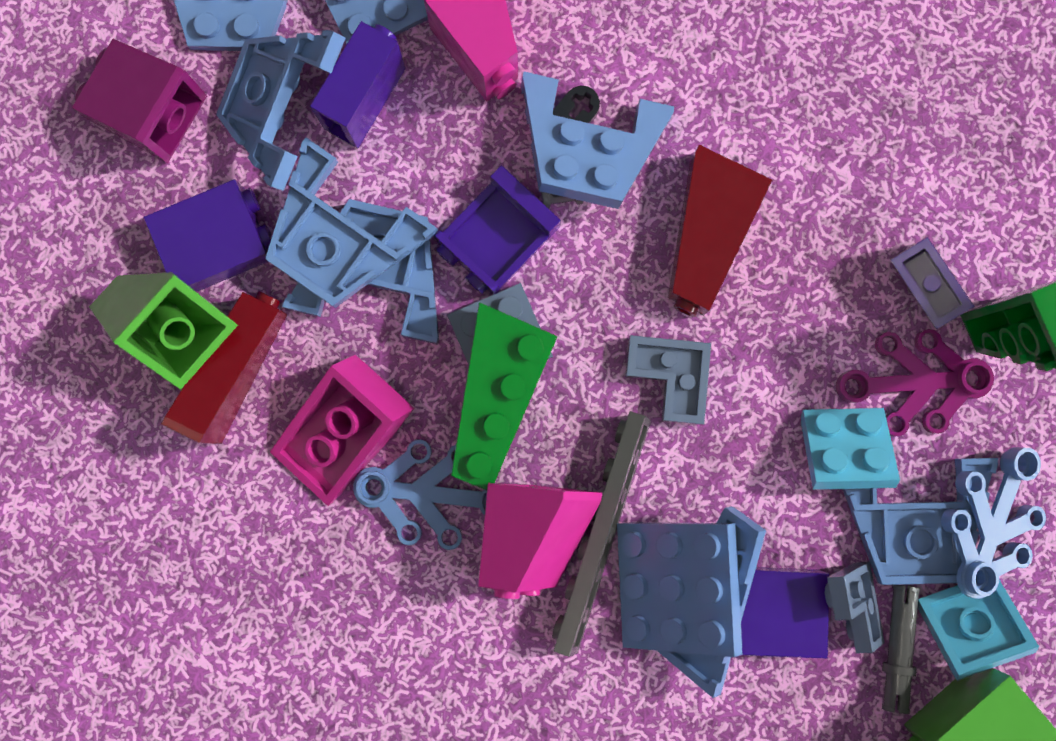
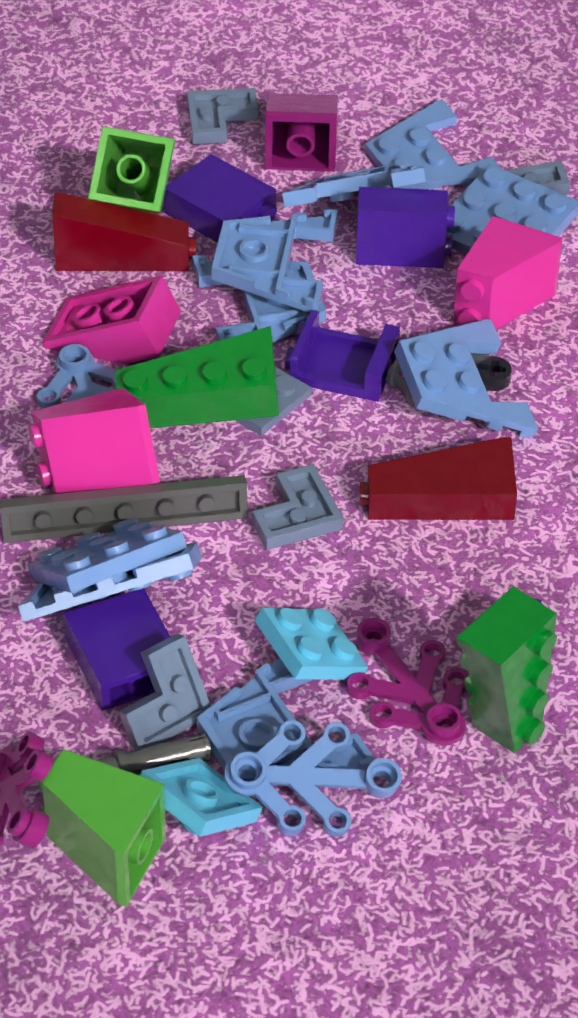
camera: 65 degrees right, 40 degrees down
(48, 168) = (212, 108): none -> sand blue plate

